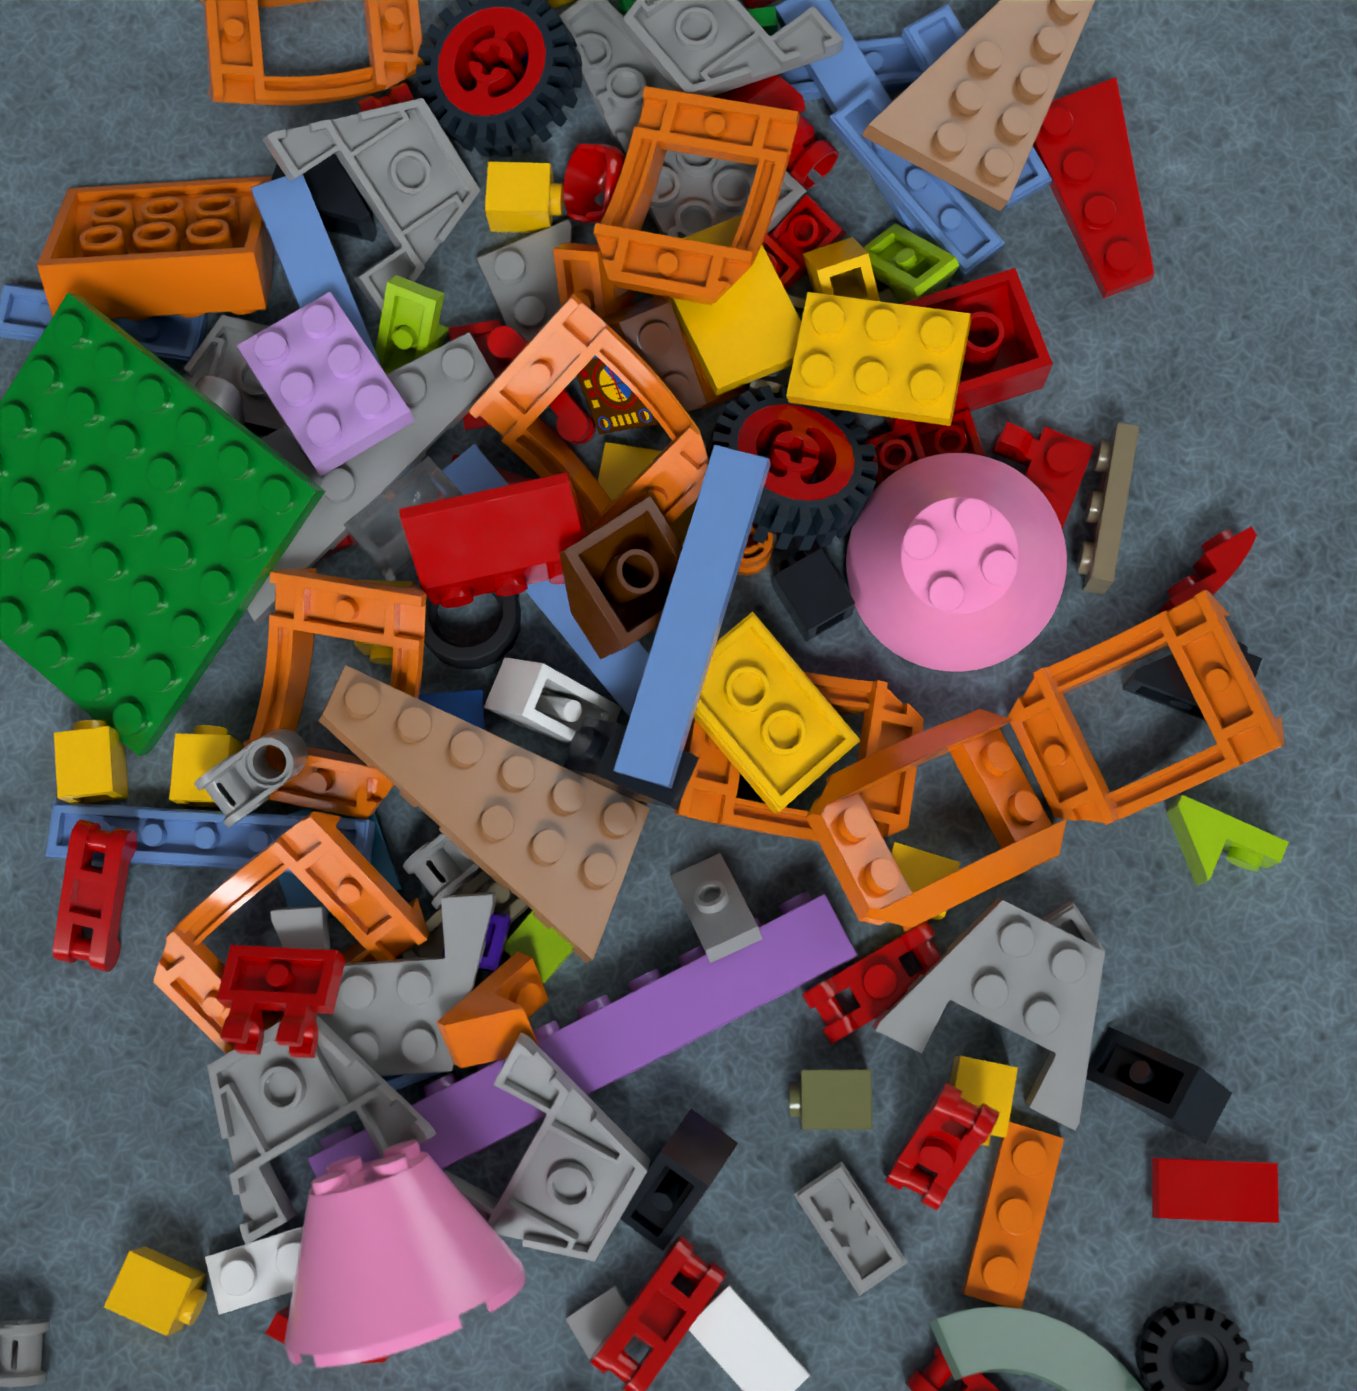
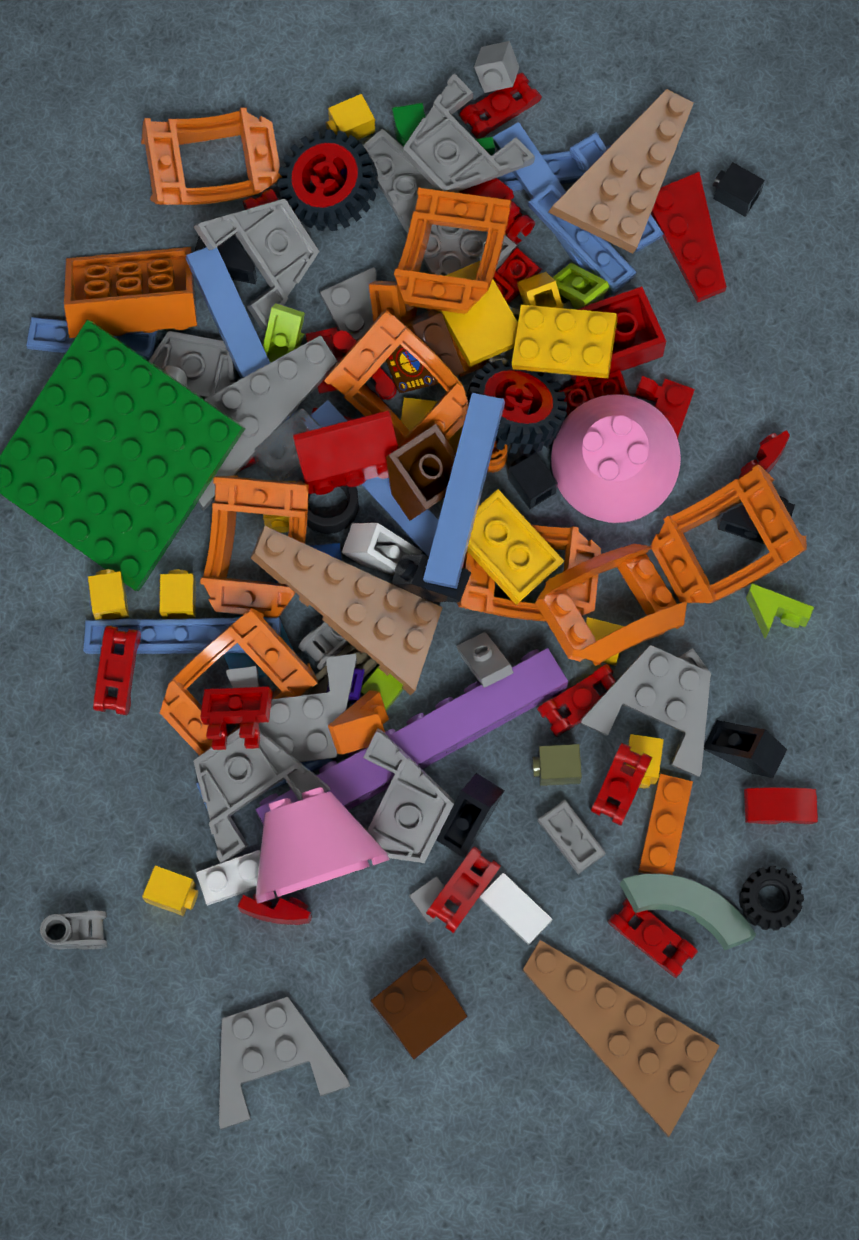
camera: 10 degrees left, 5 degrees down
(247, 779) = (208, 594): light grey piece -> none
(325, 383) = (238, 367): lavender plate -> none
(522, 197) = (345, 254): yellow brick -> none
(587, 174) = (384, 239): red hair -> none
(1107, 508) = (703, 424): dark tan plate -> none
(1180, 107) = (737, 188): none -> black brick

